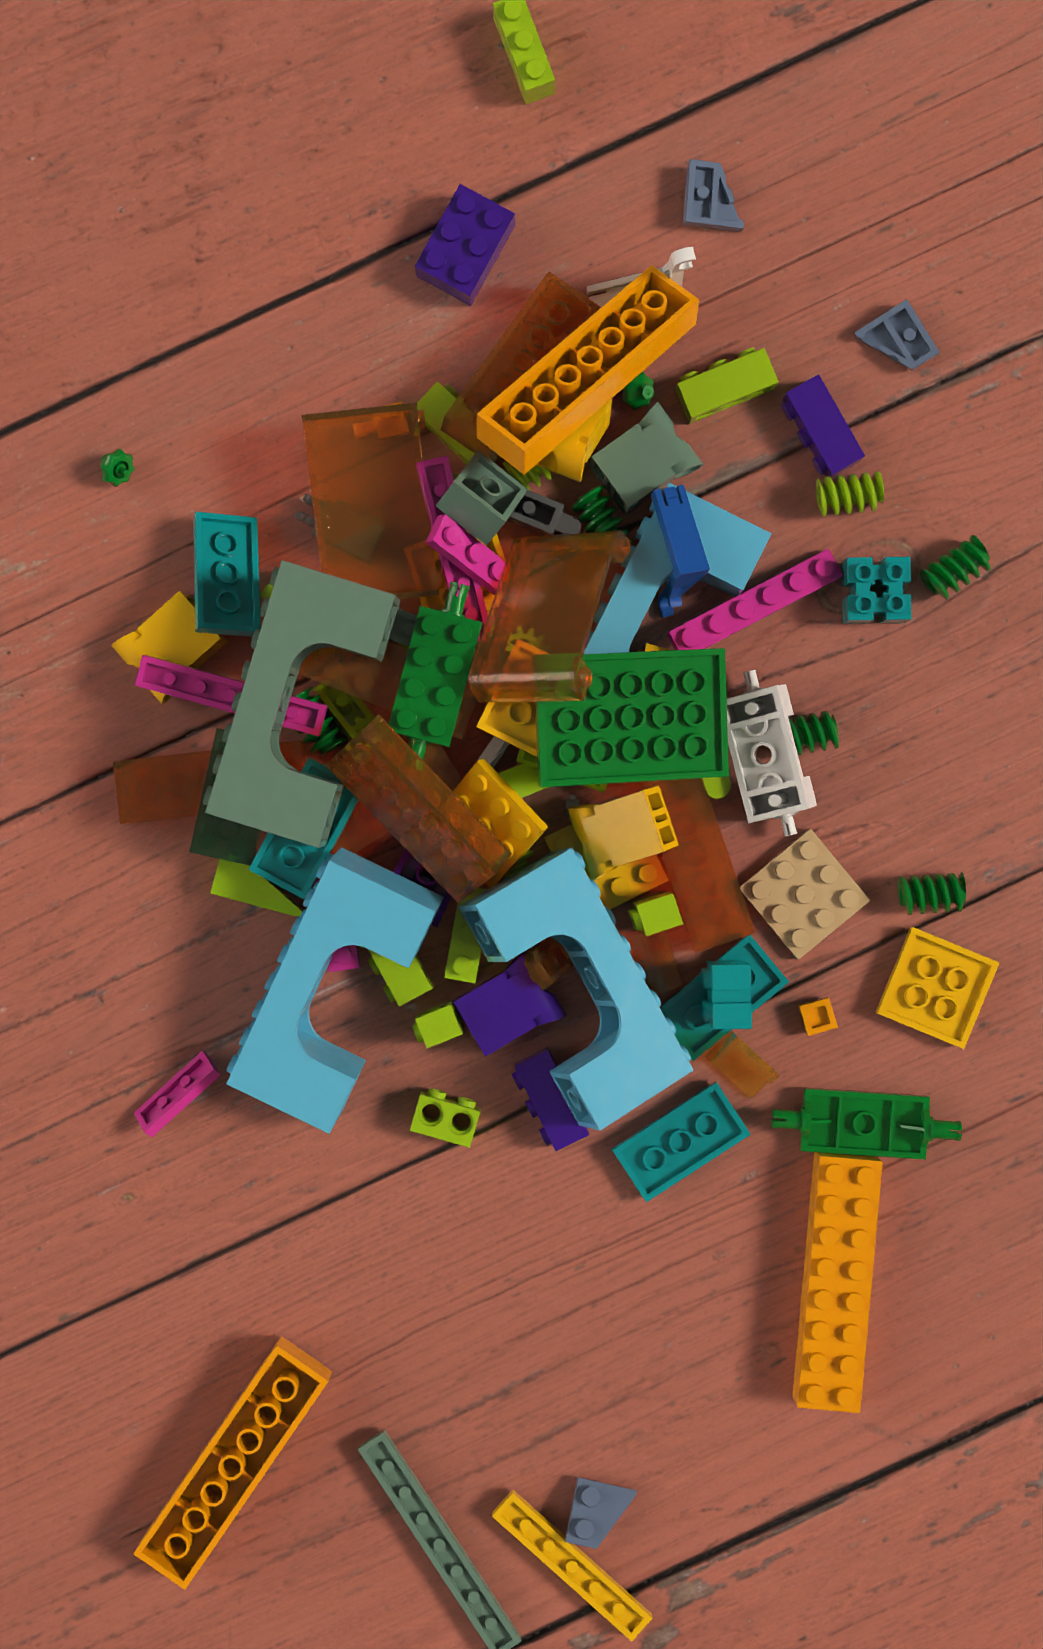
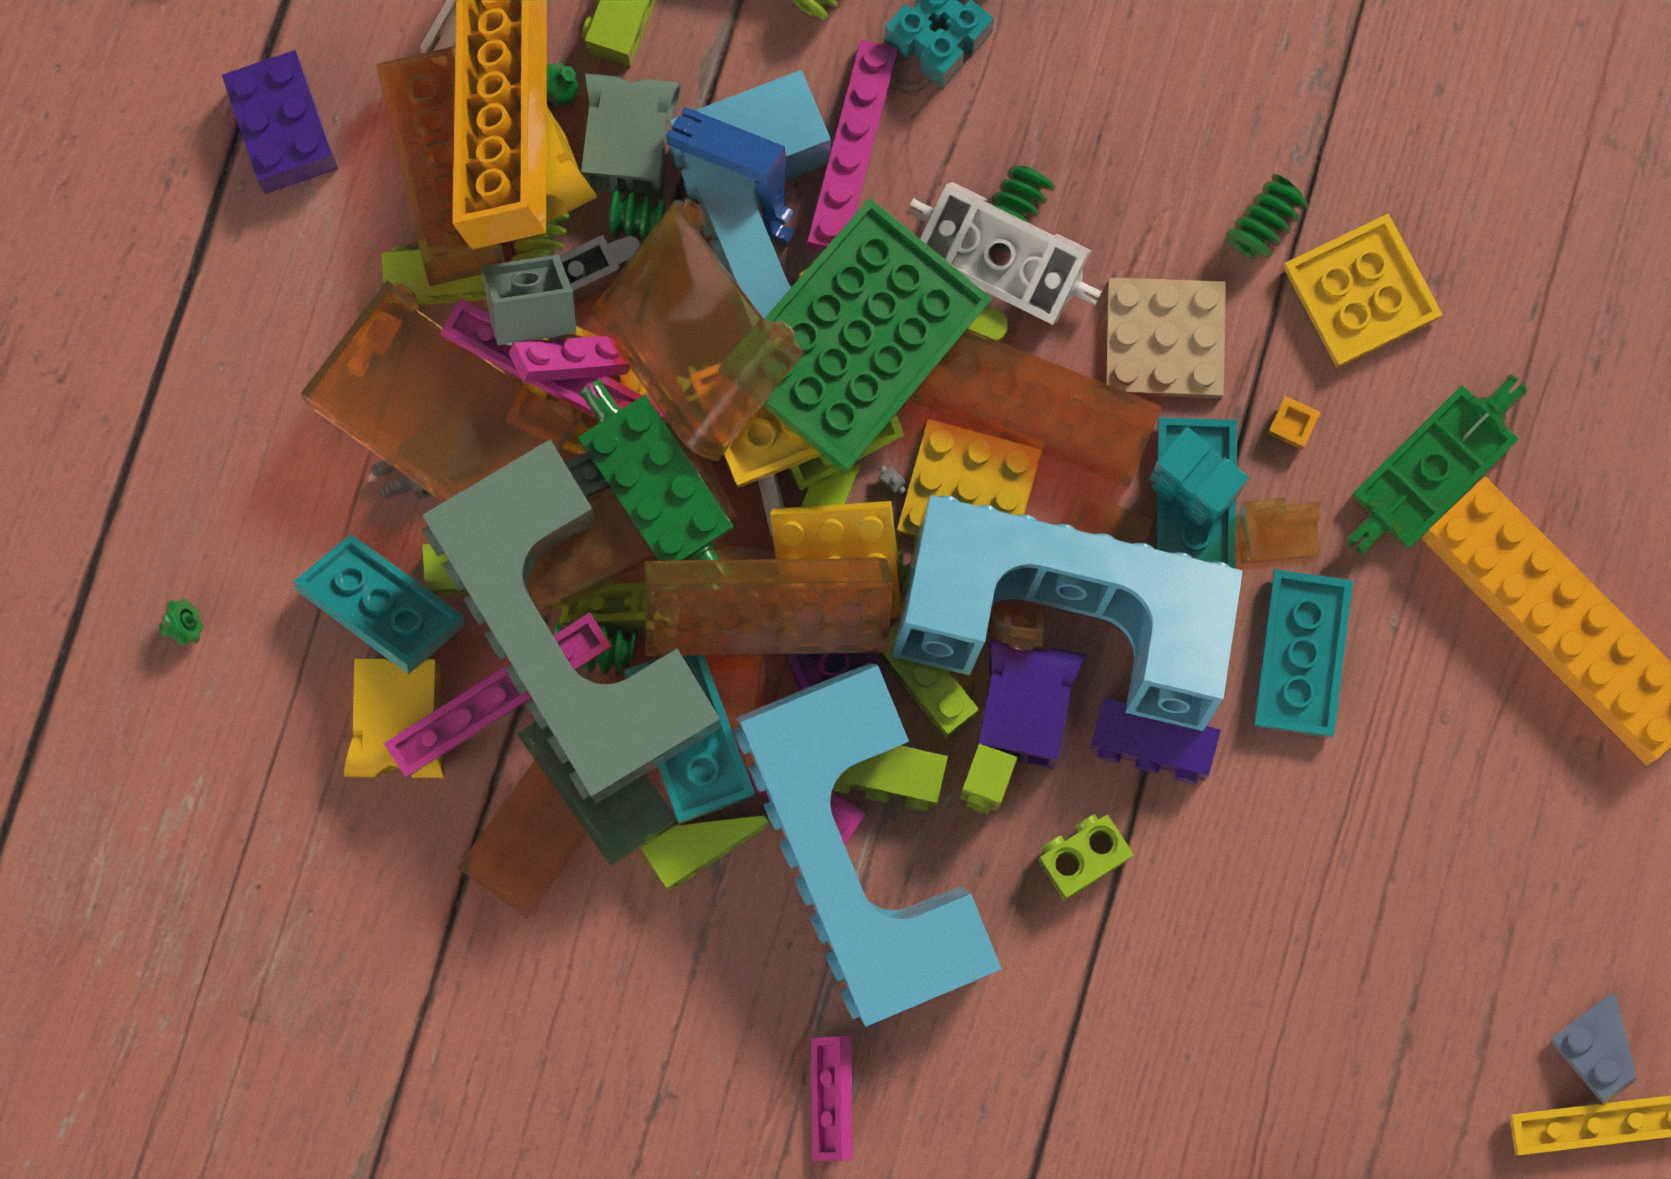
camera: 45 degrees left, 10 degrees down
(622, 830) = (955, 441): yellow piece -> none
(655, 913) = (1061, 479): lime brick -> none

